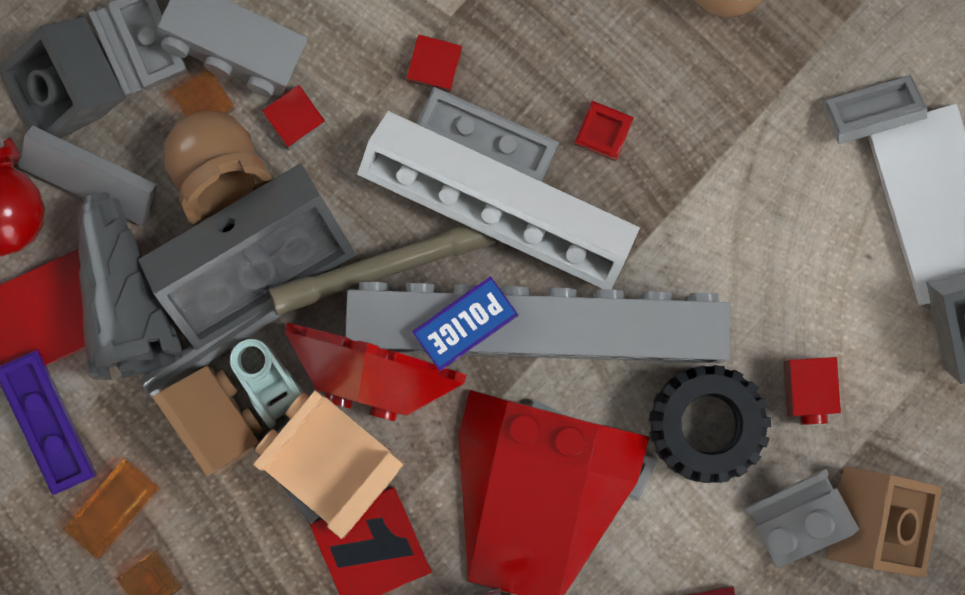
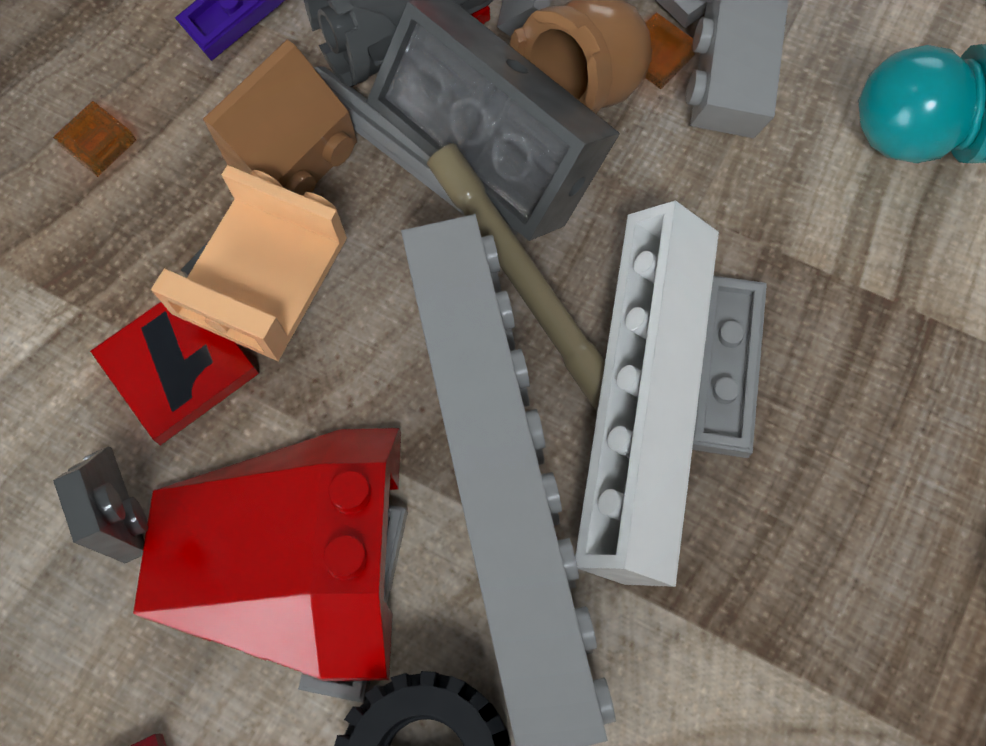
camera: 75 degrees right, 15 degrees down
(112, 508) = (172, 79): clear orange tile -> none
(267, 383) = (356, 193): light aqua piece -> none
(294, 117) = (673, 144): red tile -> none
(370, 374) = (374, 300): red wedge -> none
(434, 63) = (796, 279): red tile -> none
(465, 323) = (469, 363): tile -> none
(604, 130) = (788, 509): red tile -> none

